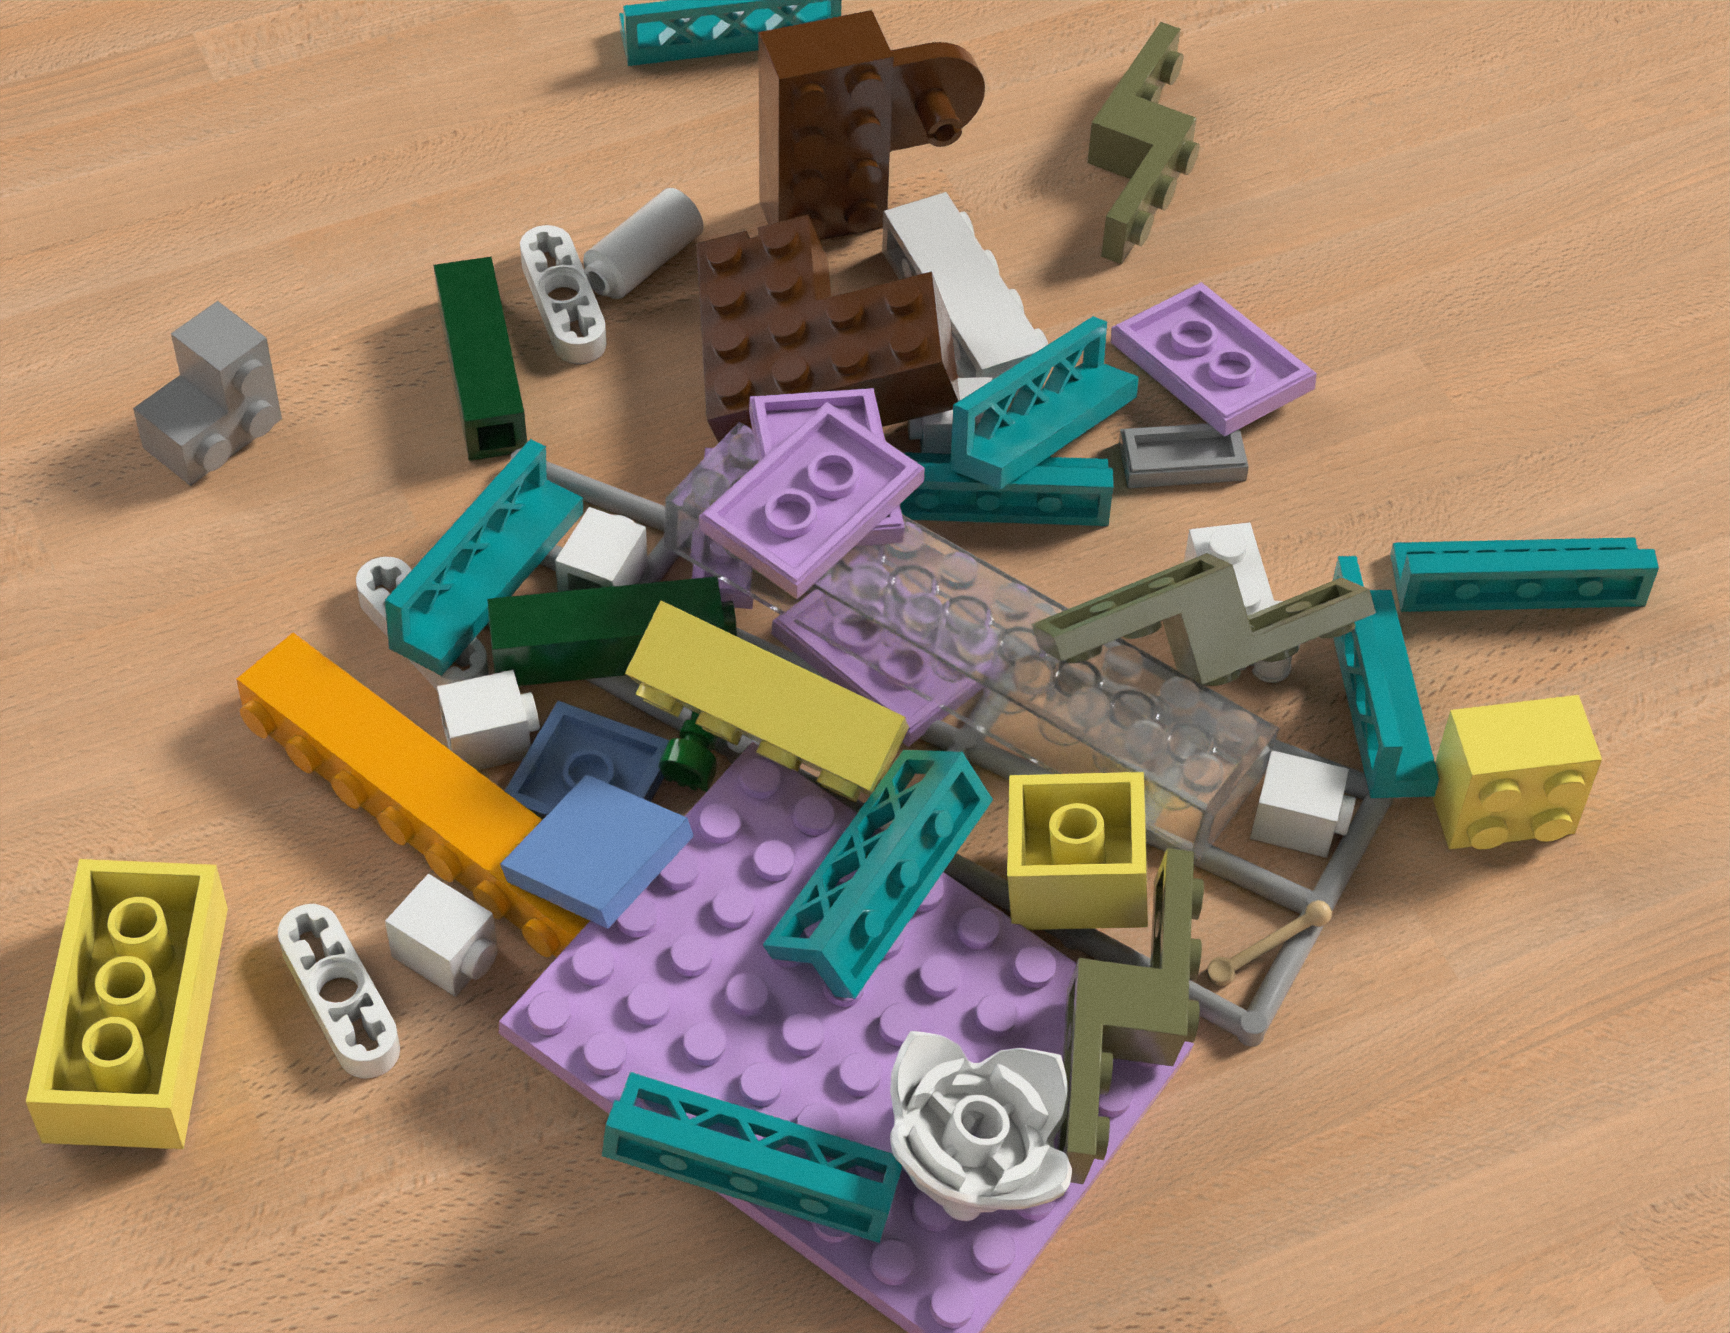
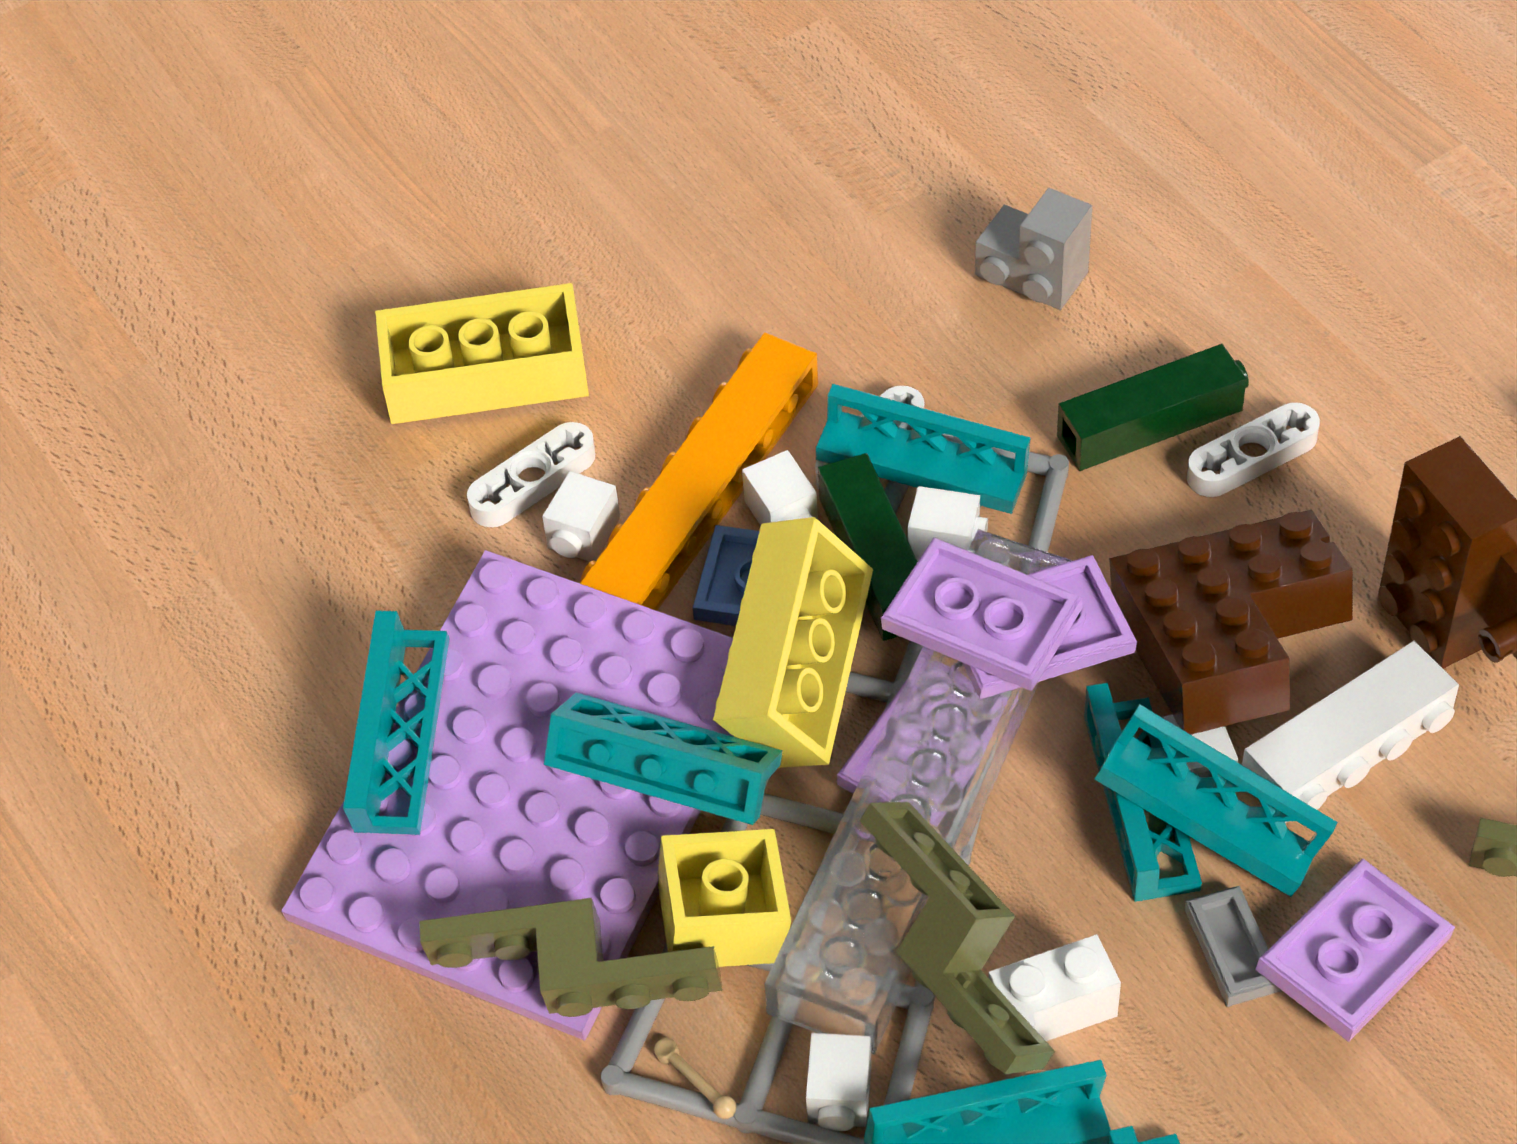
camera: 85 degrees right, 0 degrees up
(597, 850) = (641, 572): medium blue tile -> none
(642, 243) = (1322, 485): white brick -> none
(1006, 1101) = (396, 826): white brick -> none

